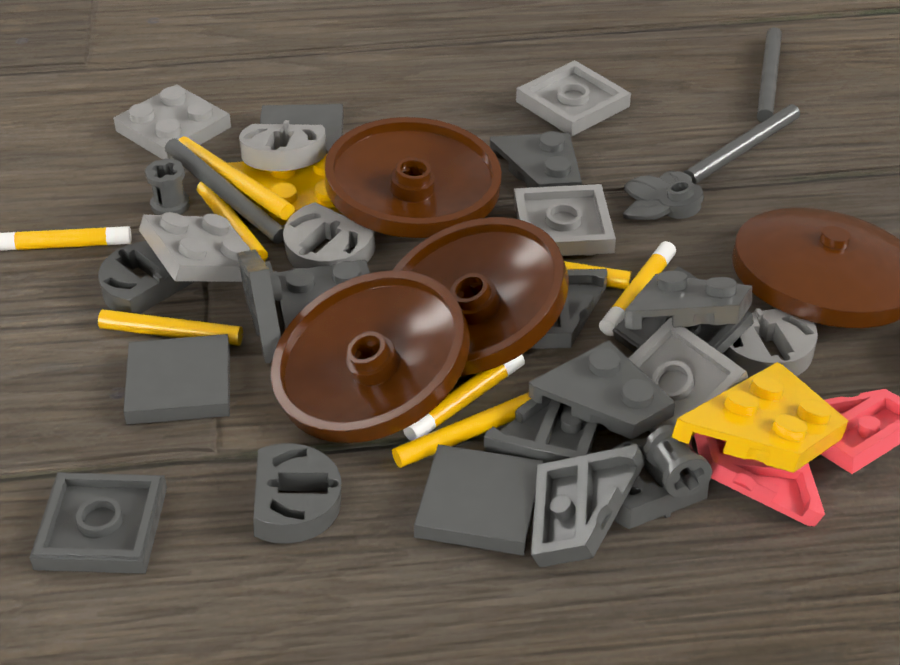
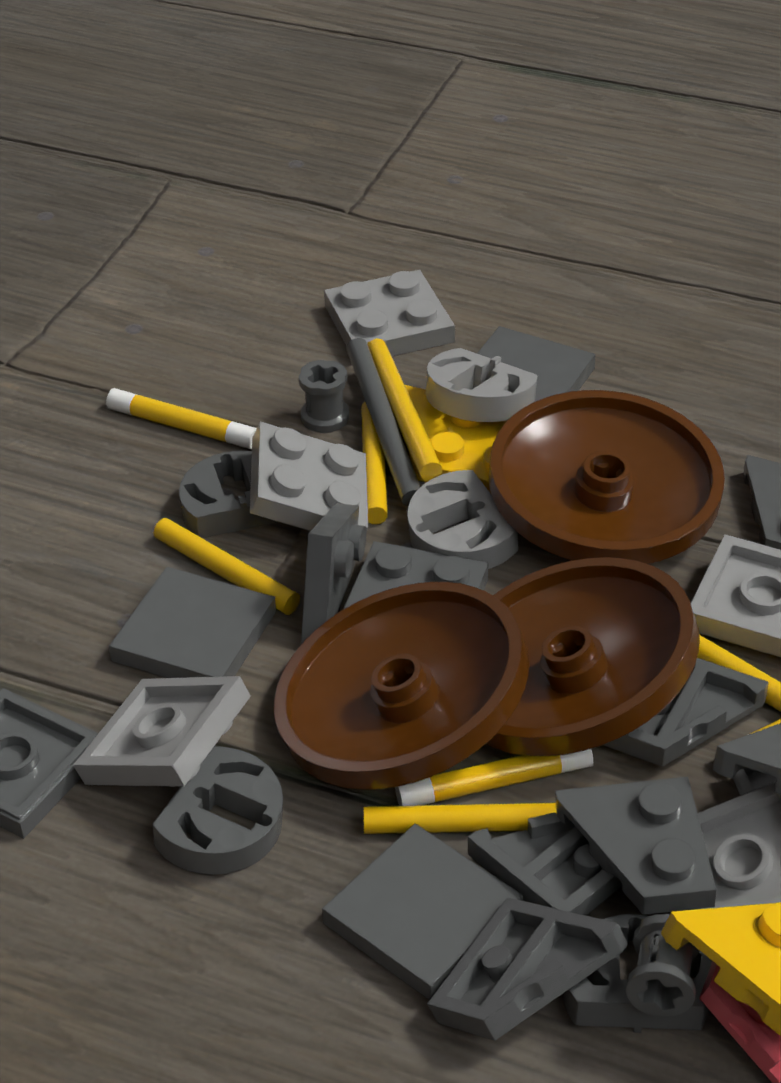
camera: 30 degrees right, 0 degrees up
(215, 453) = (163, 731): none -> light grey plate

